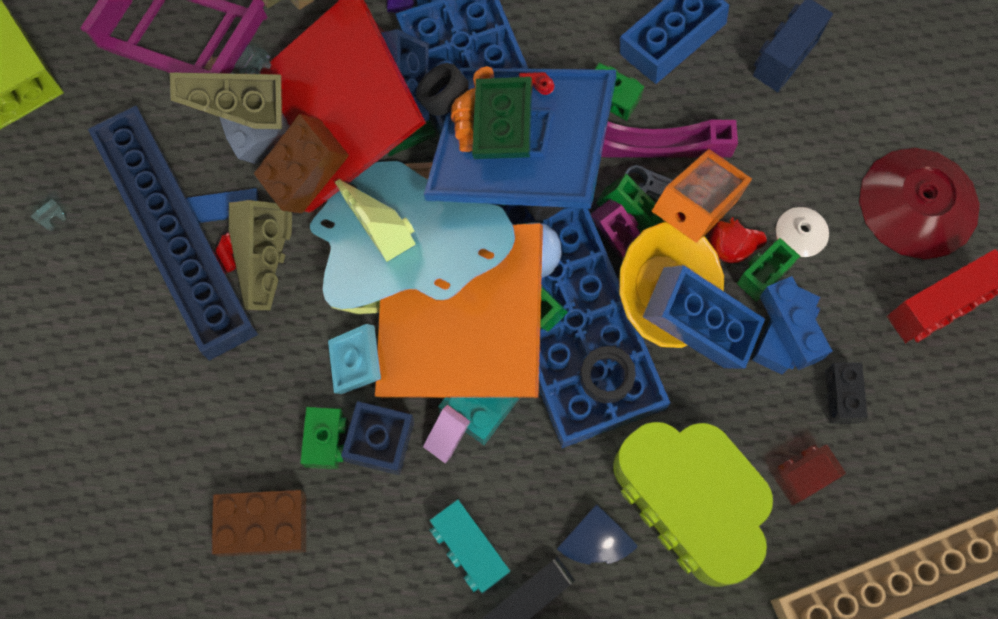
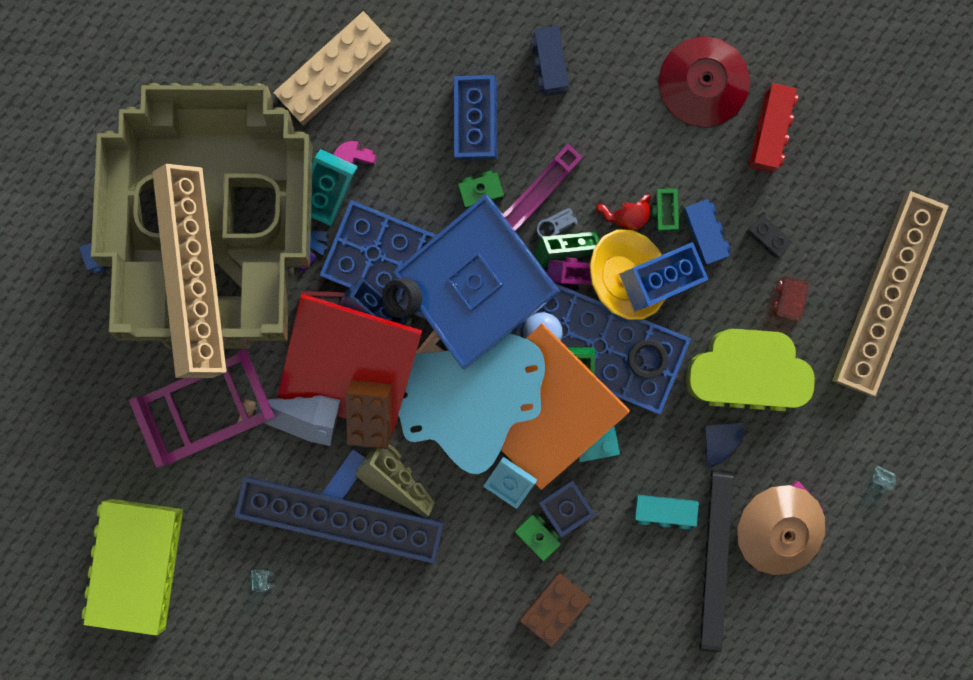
camera: 45 degrees left, 15 degrees up
(224, 252) = (376, 498): red arm -> none
(241, 98) = (296, 416): olive wedge -> none
(253, 60) = (272, 384): clear light blue tile -> none
(380, 222) = (455, 406): yellowish green wedge -> none
(446, 434) = (597, 470): lavender tile -> none
(463, 112) = (429, 295): orange piece -> none
(502, 118) = (460, 287): dark green plate -> none
(541, 82) = (450, 240): red arm -> none
(701, 195) = (595, 208): orange brick -> none
(795, 323) = (711, 231): blue brick -> none
(804, 243) = (657, 174): white dish -> none

